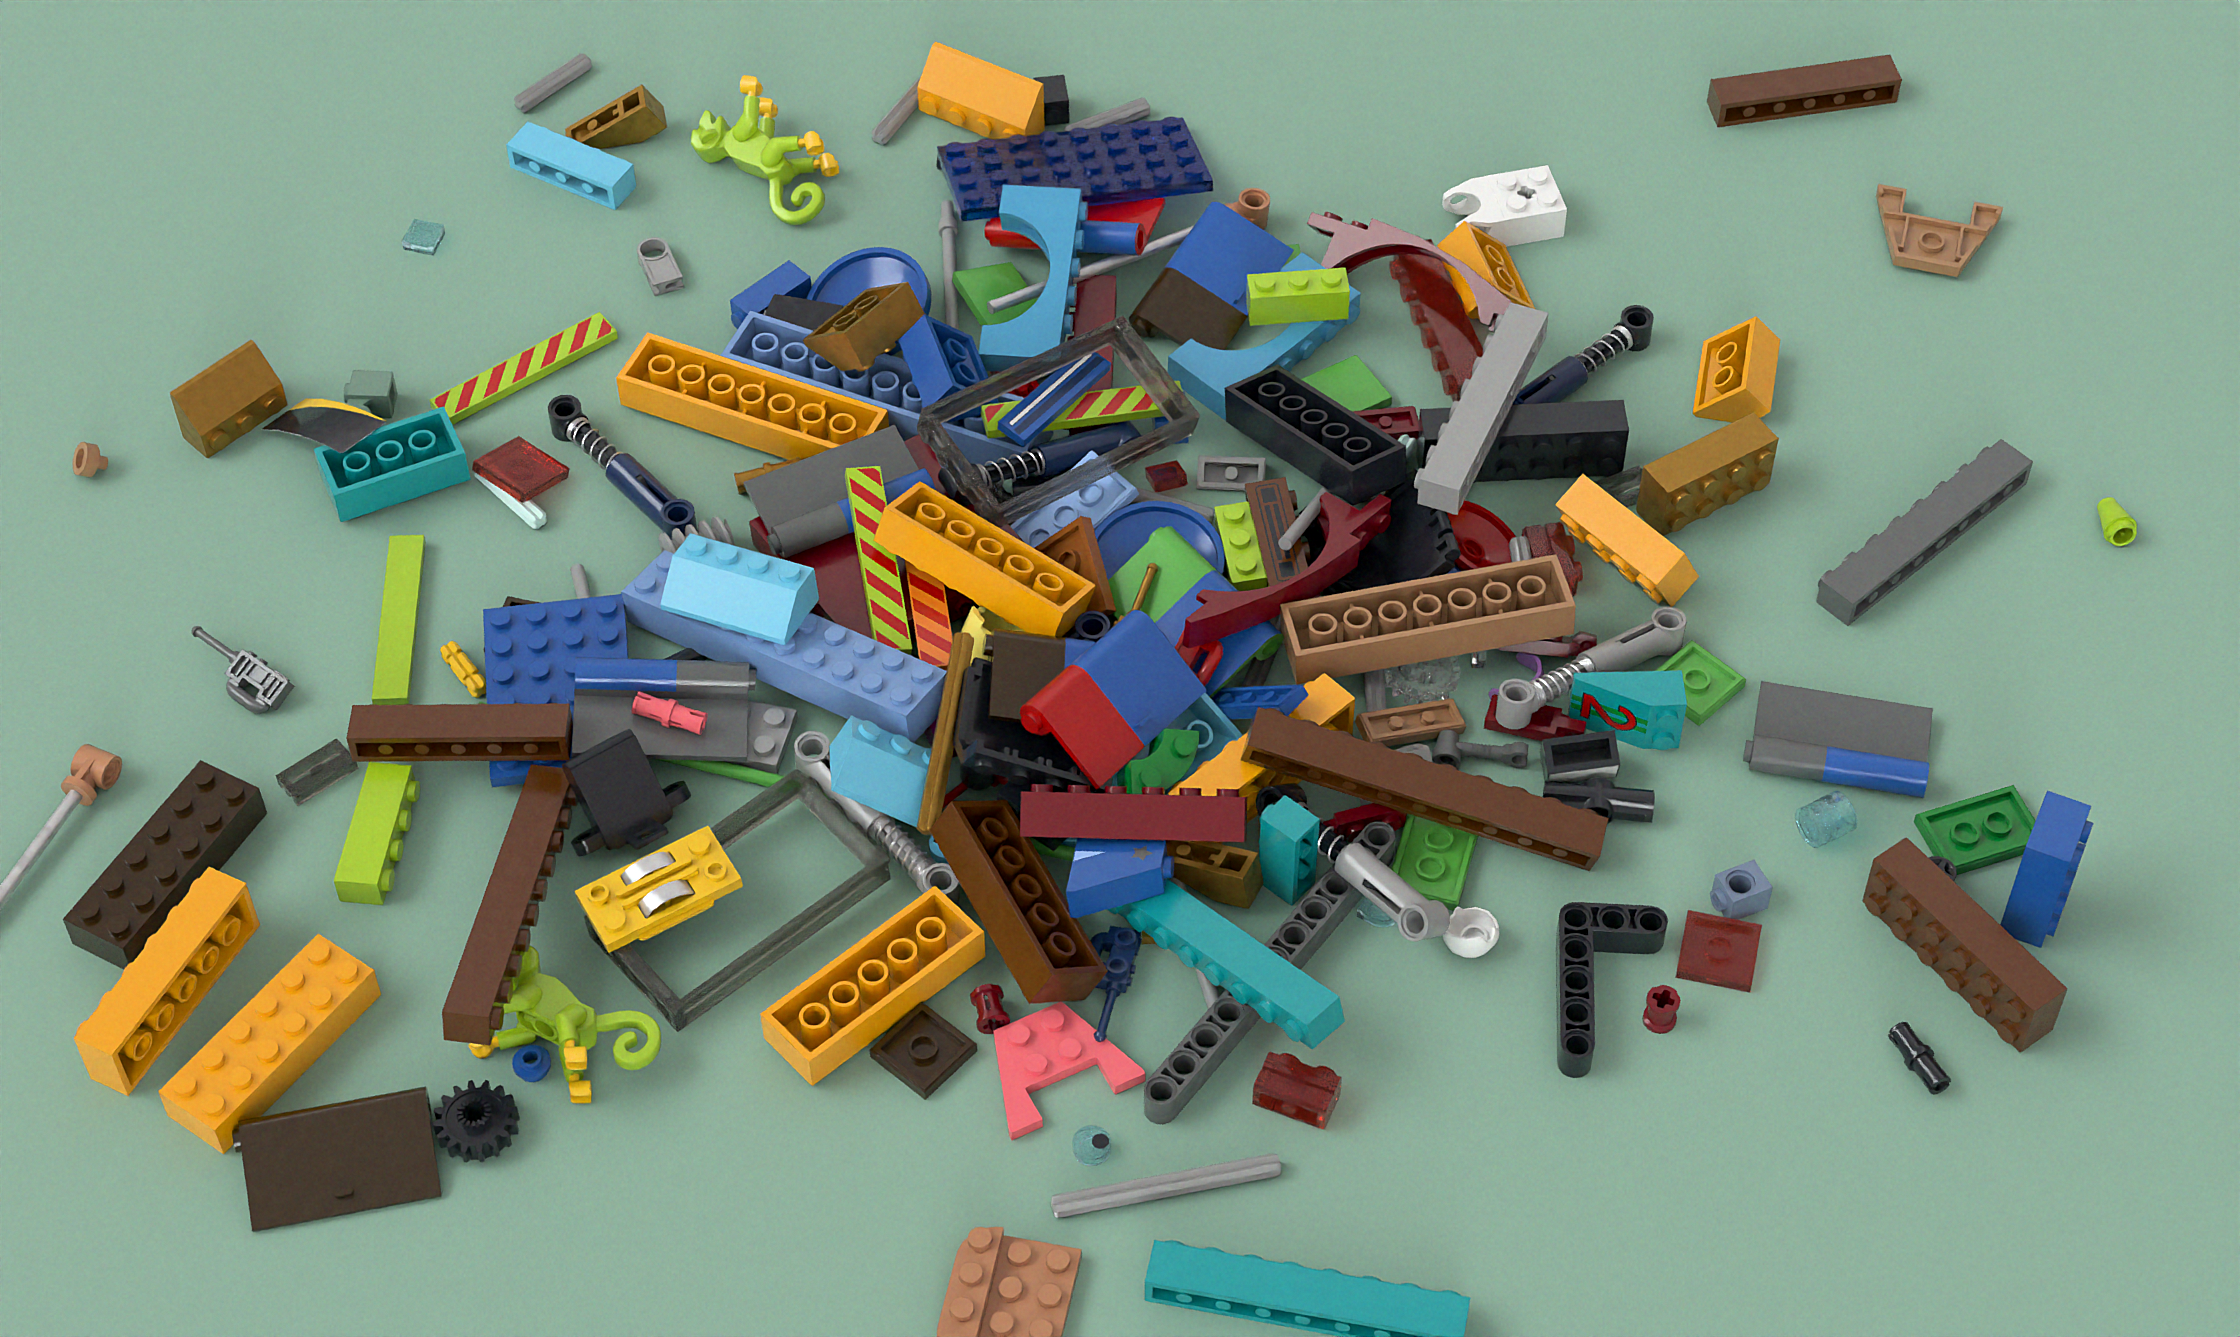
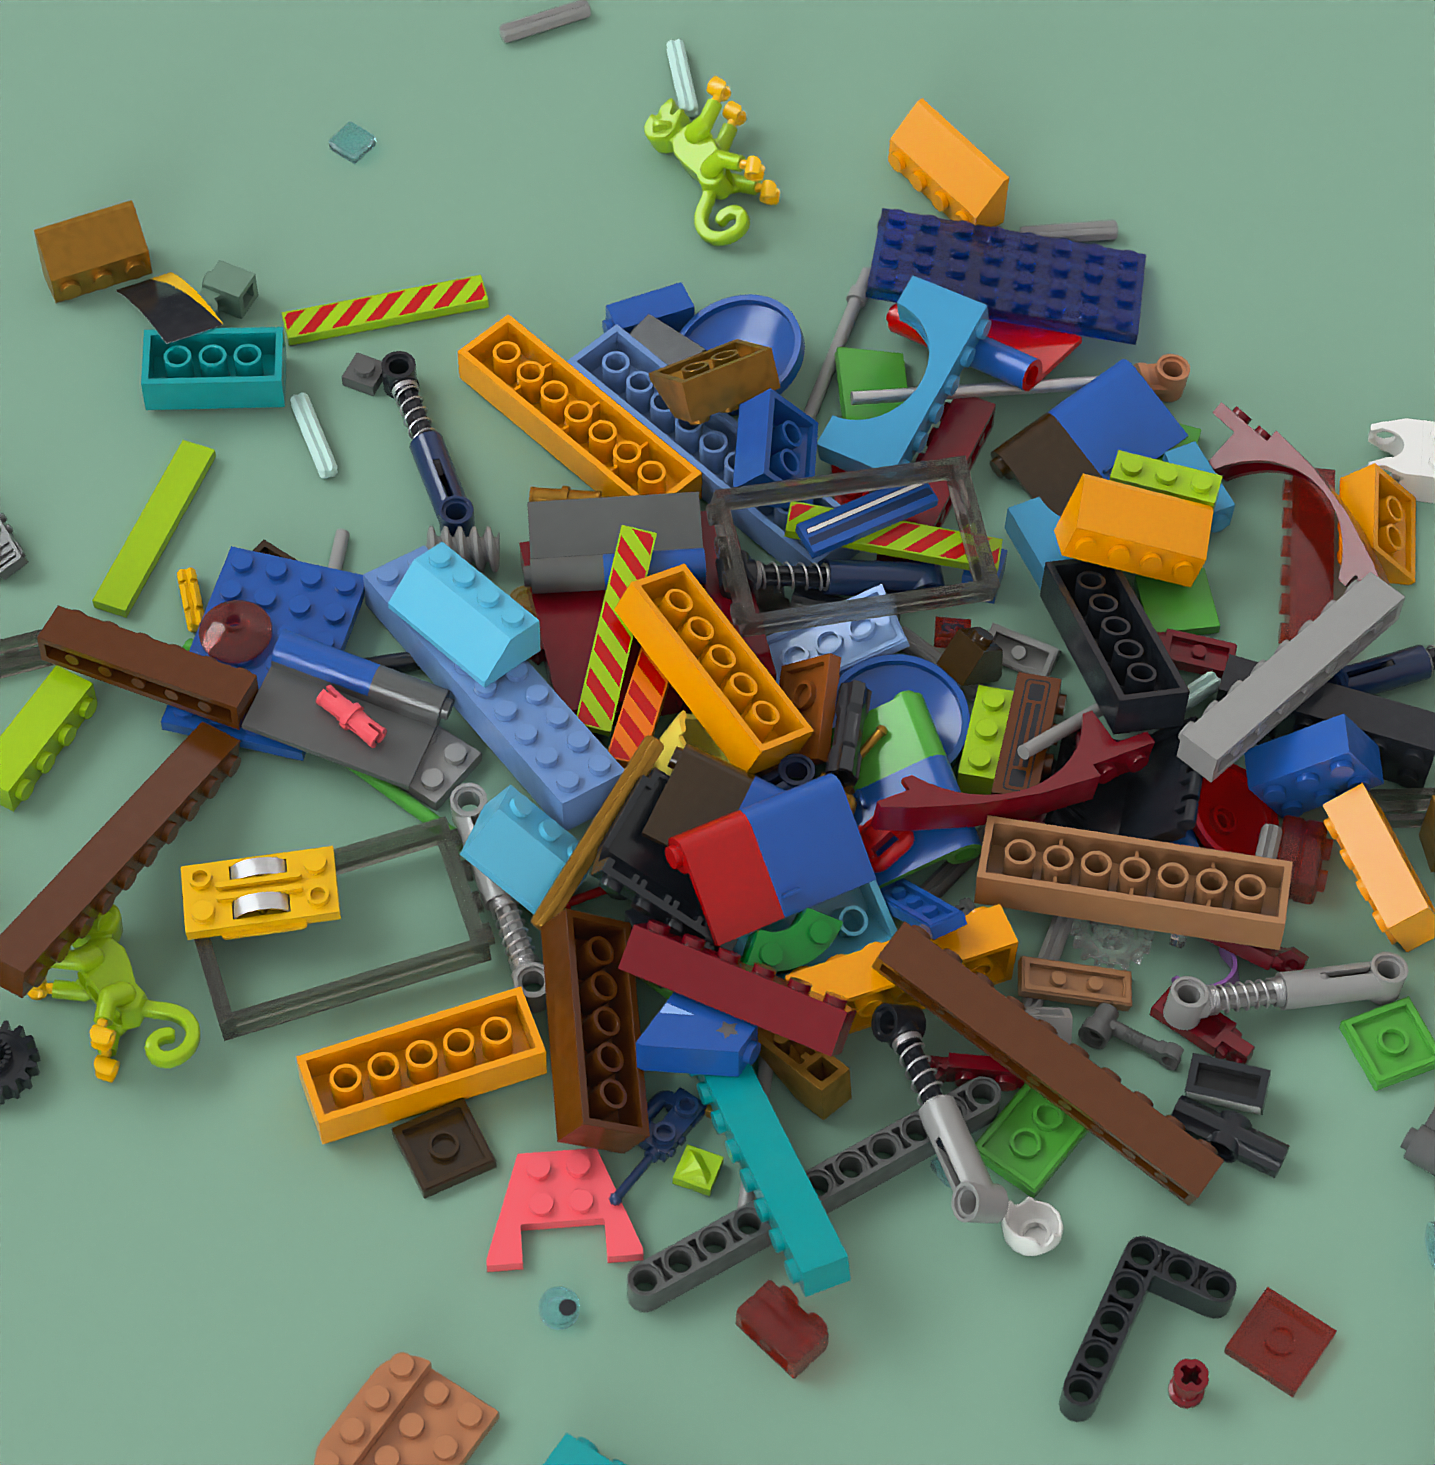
camera: 20 degrees right, 5 degrees up
(520, 469) = (332, 413): clear red tile -> none
(528, 687) = (237, 642): none -> clear red dish
(533, 427) = (363, 374): none -> dark grey plate
(534, 1071) = (77, 1031): blue plate -> none
(571, 165) = (522, 113): medium azure brick -> none
(620, 795) = (269, 784): black piece -> none
(621, 122) = (588, 83): pearl gold slope -> none
(660, 271) = (560, 250): light grey piece -> none
(700, 91) = (682, 77): none -> light aqua axle
(897, 115) = (860, 162): light grey axle -> none
(989, 1008) = (524, 1129): dark red bush -> none
(1055, 99) = (1022, 193): black brick -> none
(1119, 560) = (851, 711): none -> black axle
(1158, 989) = (698, 1170): none -> lime tile
(1165, 1185) = (611, 1377): light grey axle -> none
(1198, 485) = (972, 657): none -> dark brown slope
(1288, 849) = (880, 1076): teal brick -> none
(1291, 335) = (1135, 530): none -> light orange slope
(1531, 477) = (1313, 766): none -> blue brick
(1639, 705) = (1306, 1048): teal slope -> none
(1753, 889) = (1338, 1274): sand blue brick -> none

